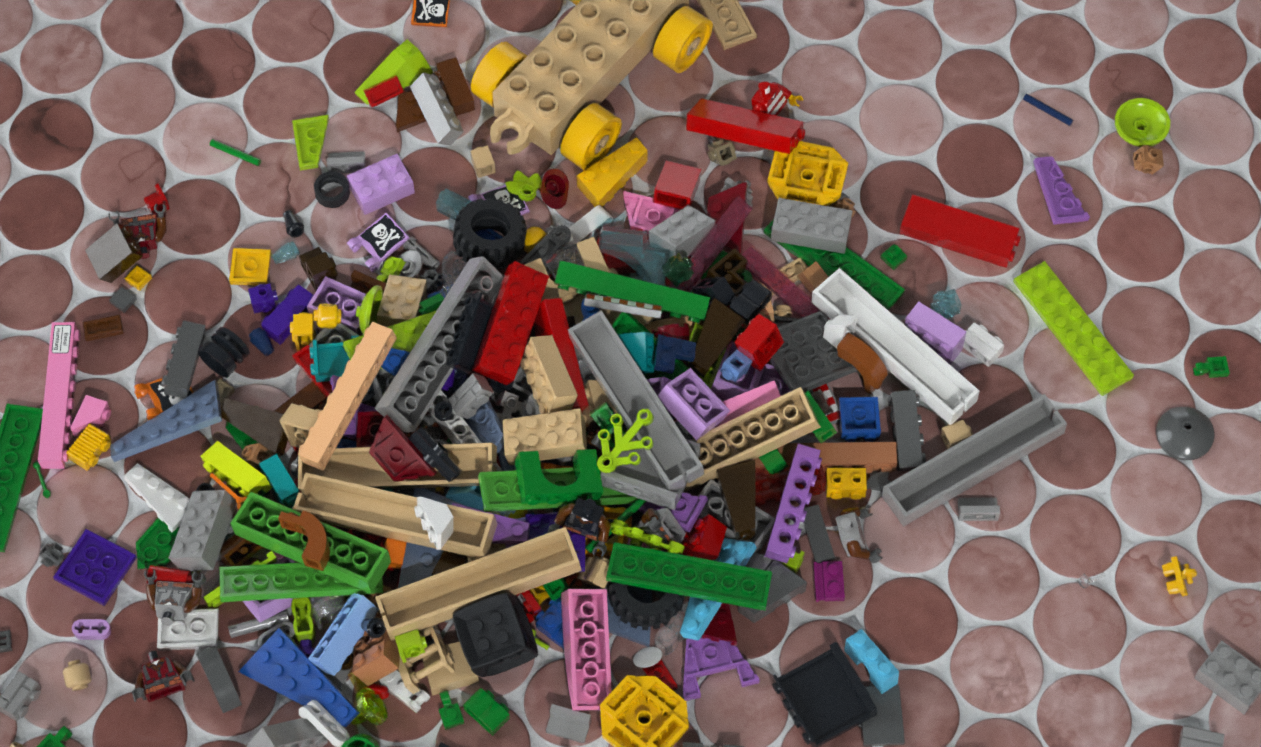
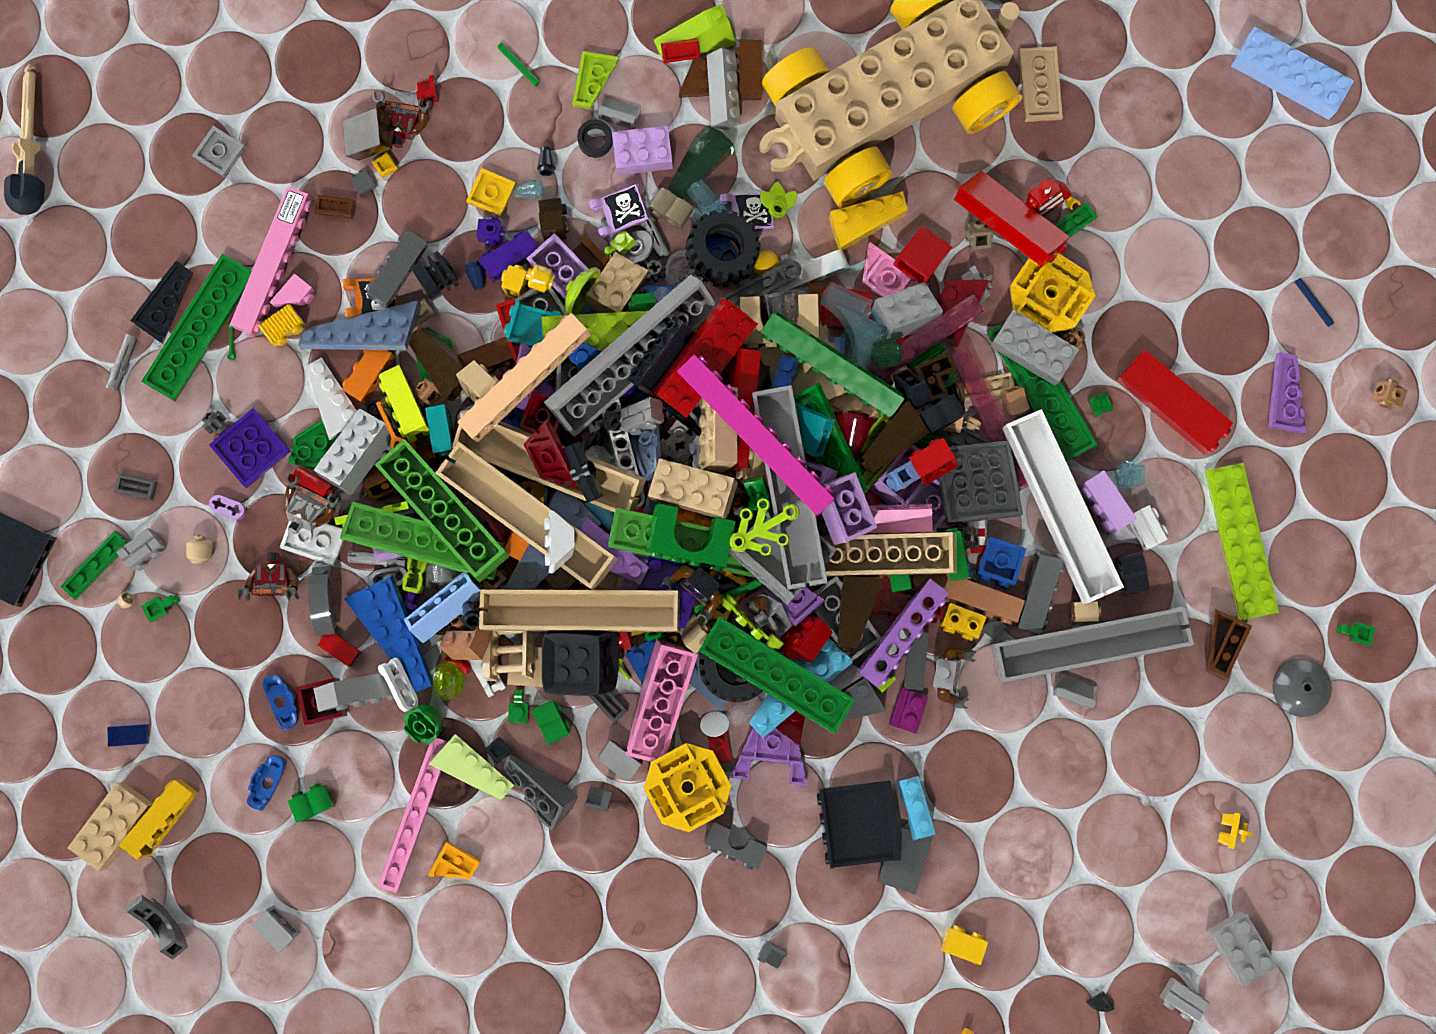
camera: 20 degrees right, 20 degrees up
(188, 461) = (366, 374): none -> orange brick
(248, 719) = (339, 648): none -> red tile
(318, 547) = (444, 519): dark orange arch -> none
(410, 644) = (500, 641): lime brick -> none
(427, 224) = (671, 208): none -> dark tan brick
(439, 172) = (704, 155): none -> clear green wedge
(482, 161) = (747, 160): tan brick -> none
(541, 687) = (619, 714): none -> dark grey tile
(554, 188) = (804, 217): dark red piece -> none
(586, 361) = (751, 430): none -> dark pink brick
(623, 305) = (817, 379): light grey tile -> none
(670, 349) = (844, 441): dark blue plate -> none
(807, 110) = (1077, 220): none -> green plate
(837, 328) = (1016, 473): white slope -> none
(864, 360) = (1026, 510): dark orange arch -> none
(990, 389) = (1132, 573): none -> black brick
(1095, 410) = (1225, 643): none -> reddish brown wedge
(1142, 114) = (1410, 347): lime dish -> none

